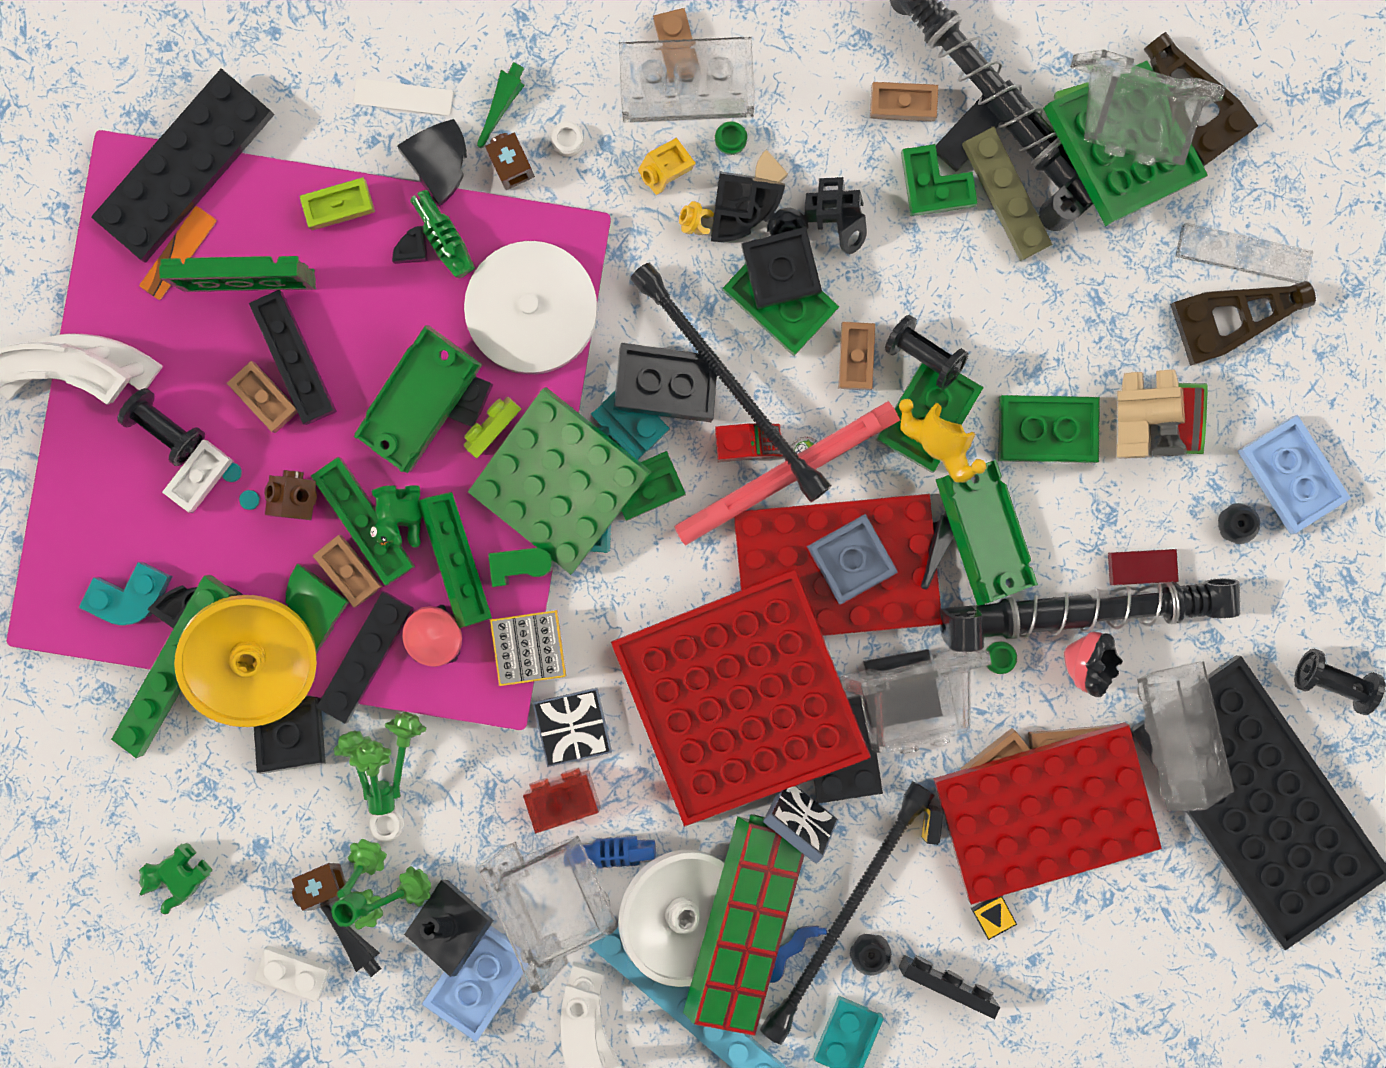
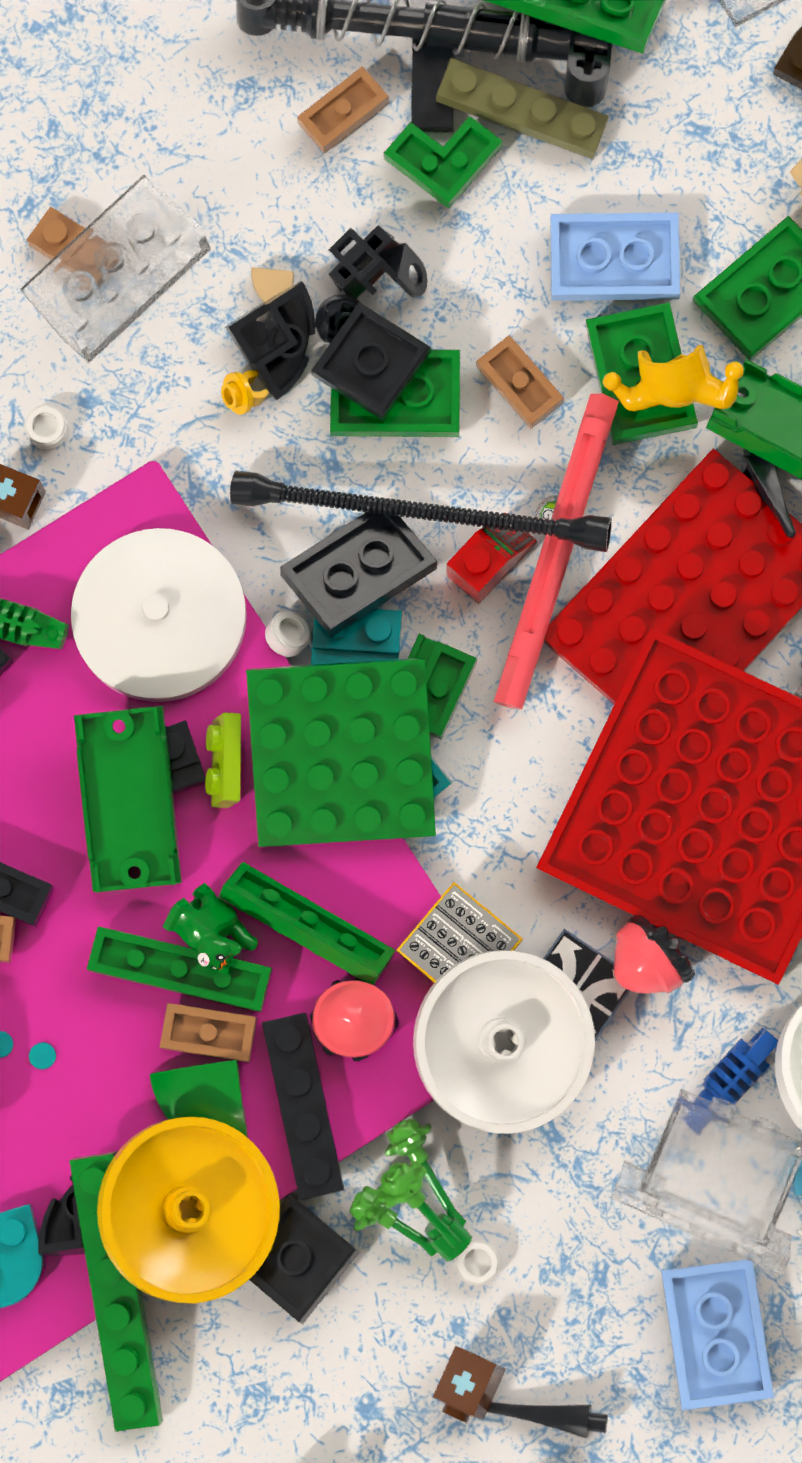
camera: 30 degrees left, 10 degrees down
(290, 496) = (85, 1007): reddish brown brick -> none
(365, 908) = (522, 1353): bright green plant -> none
(448, 927) = (637, 1305): black tile -> none
(501, 724) = (504, 1041): none -> white dish
(530, 561) = (383, 858): green leg -> none
(561, 800) = (632, 1071): clear red brick -> none
(594, 384) = (288, 634): none -> white tile
(623, 750) = (648, 959): none -> coral hair
(665, 165) = (167, 367): yellow bracket -> none
(731, 138) = (207, 287): green plate -> none
(852, 559) = (697, 574): sand blue tile -> none
(925, 351) = (578, 317): black hose -> none
(982, 327) = (615, 256): none -> light blue plate

